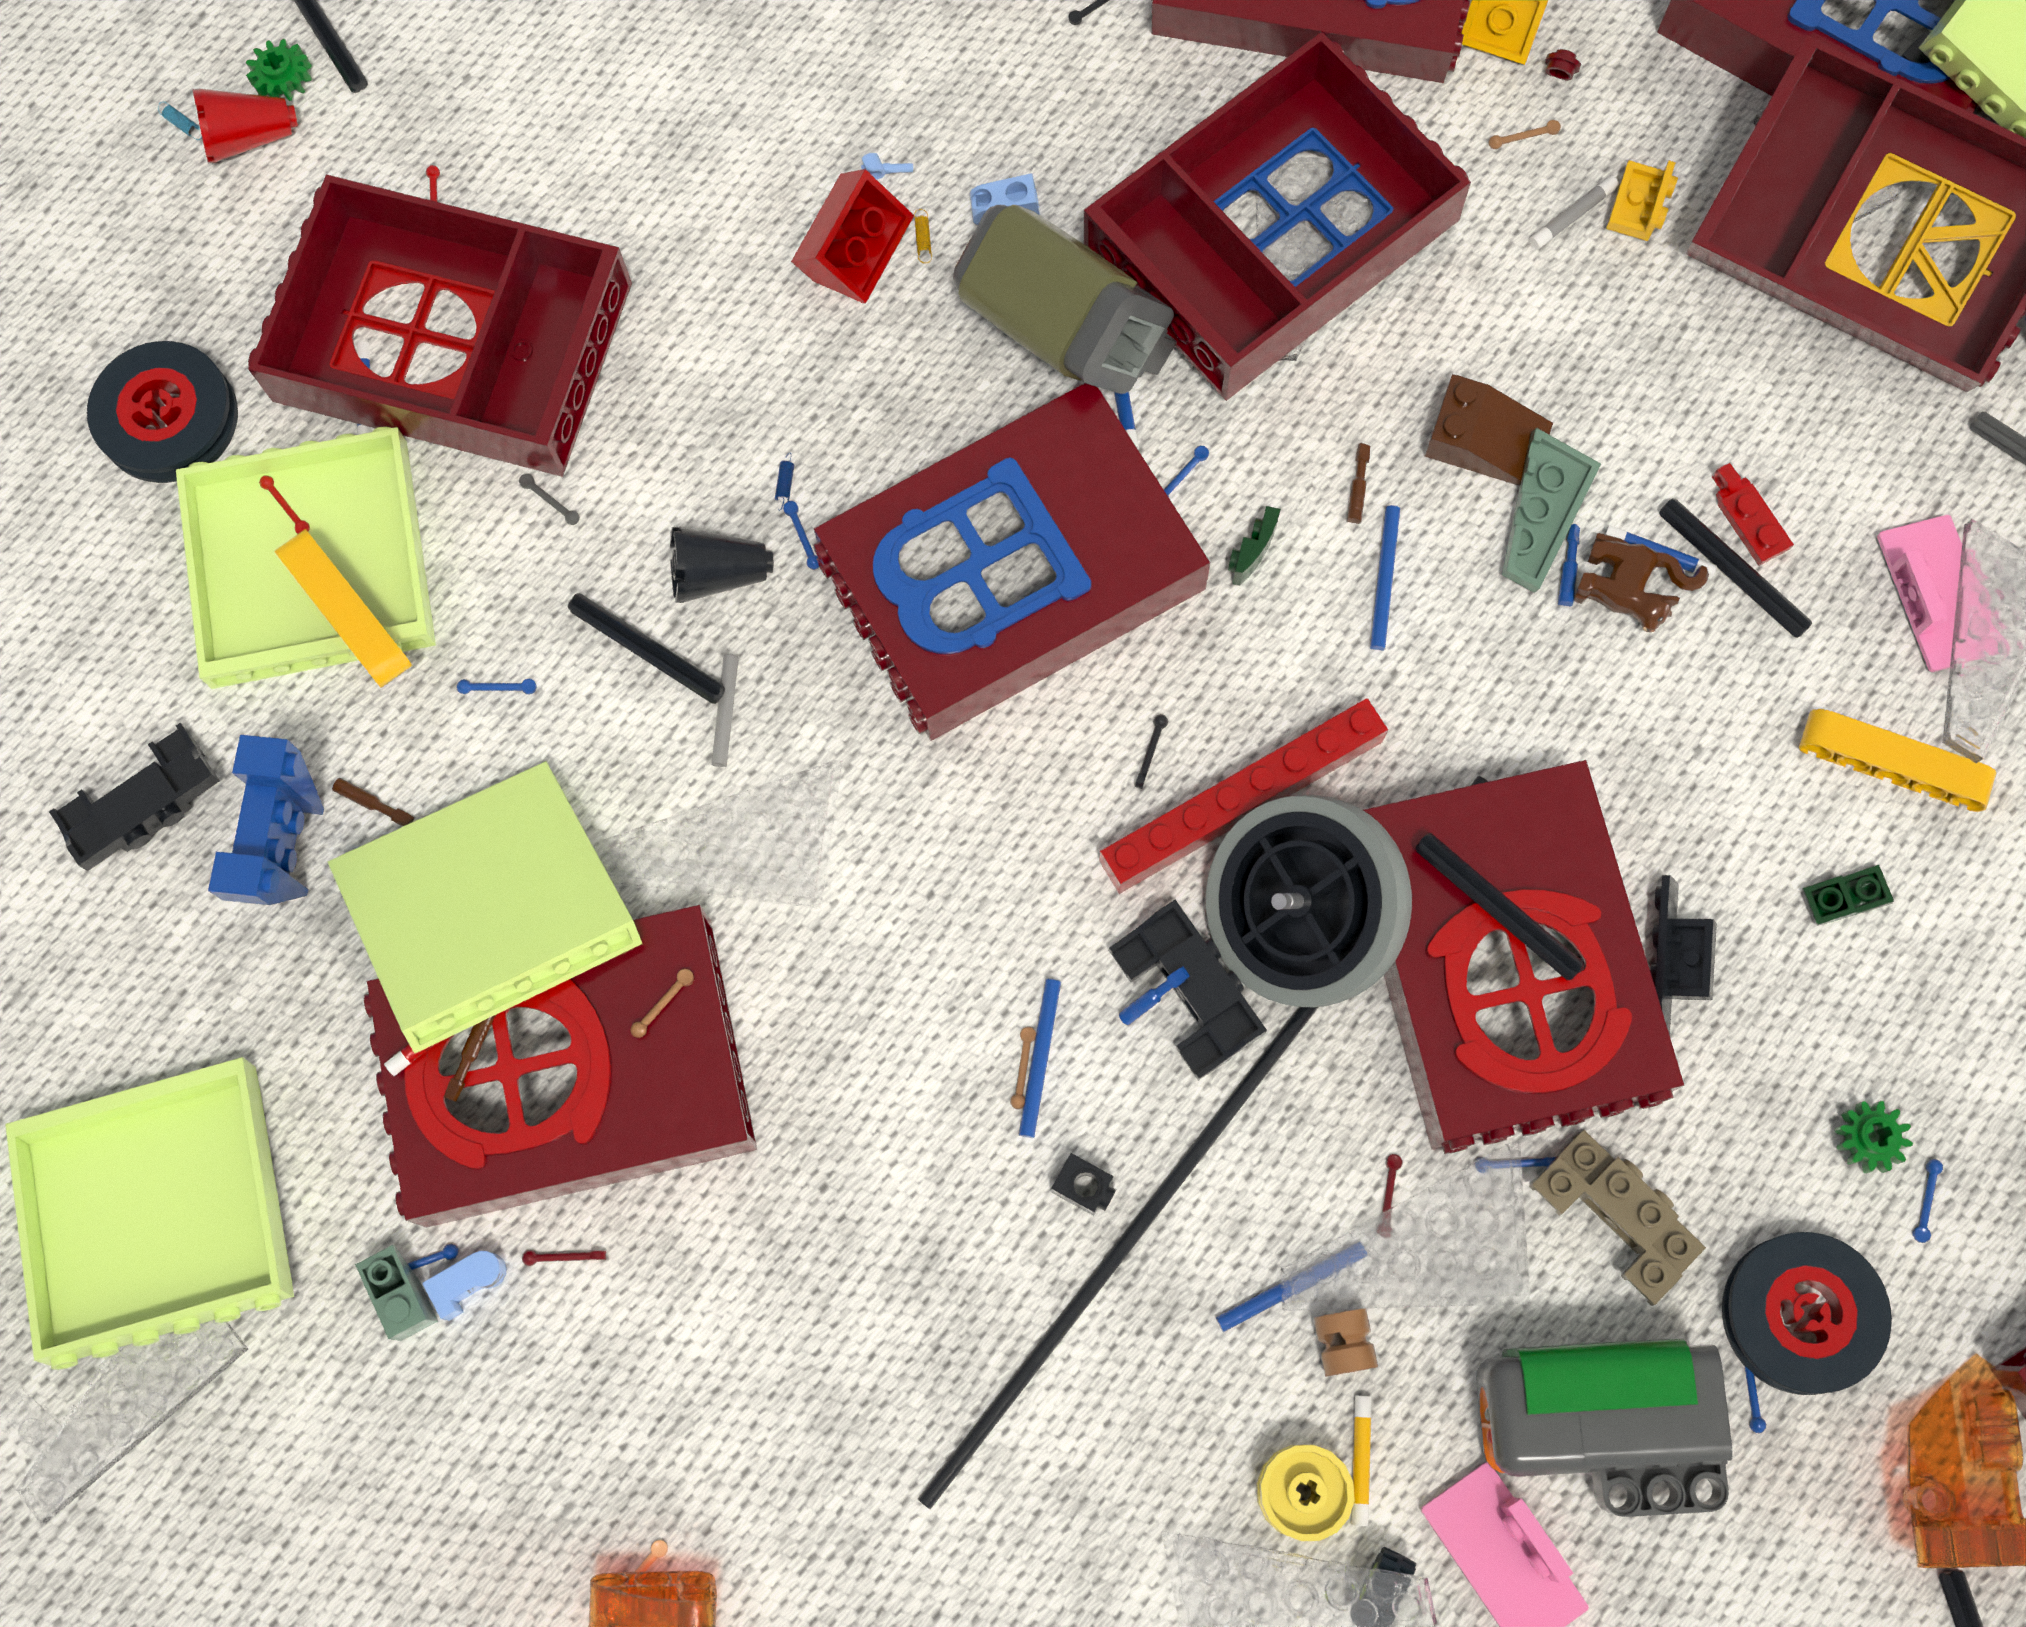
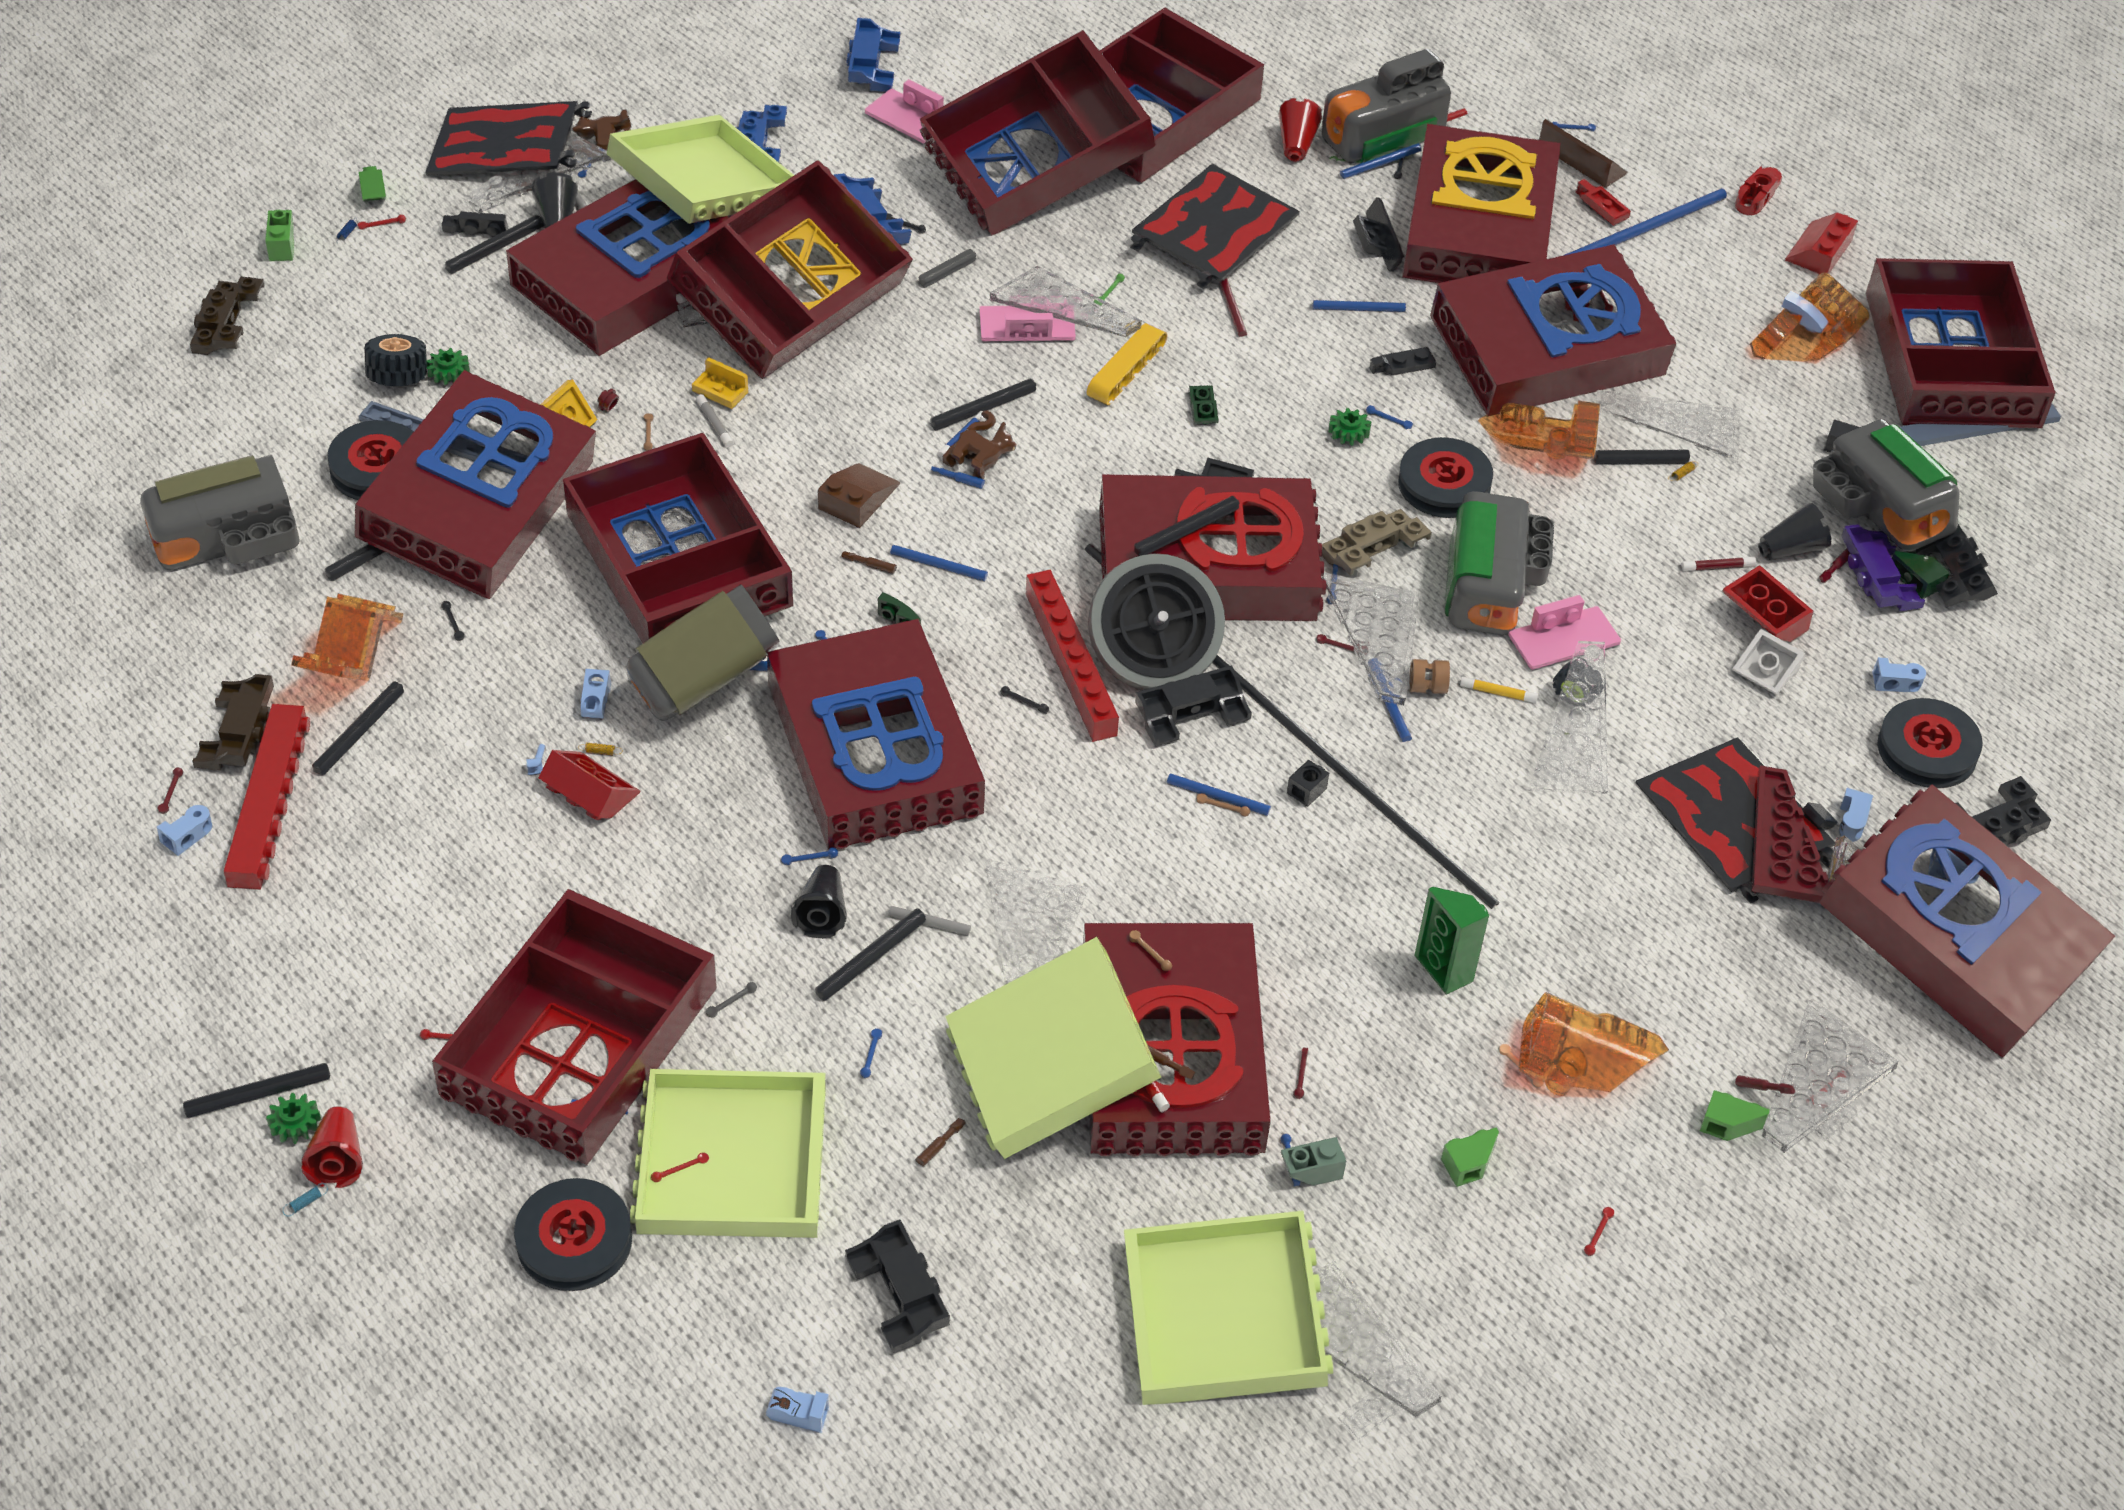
camera: 85 degrees left, 25 degrees down
(268, 824) = (957, 1177): blue wedge -> none
(343, 608) = (793, 1113): yellow beam -> none
(447, 1518) = (1469, 1157): none -> bright green slope
(462, 1280) = (1307, 1122): light blue leg -> none
(775, 1442) = (1451, 937): none -> green slope
(784, 480) = (764, 858): blue piece -> none
(1152, 996) = (1195, 720): blue piece -> none
(1329, 1498) = (1515, 711): light yellow wheel -> none
(1546, 506) = (917, 474): sand green wing -> none
(1750, 516) = (951, 390): red hinge -> none

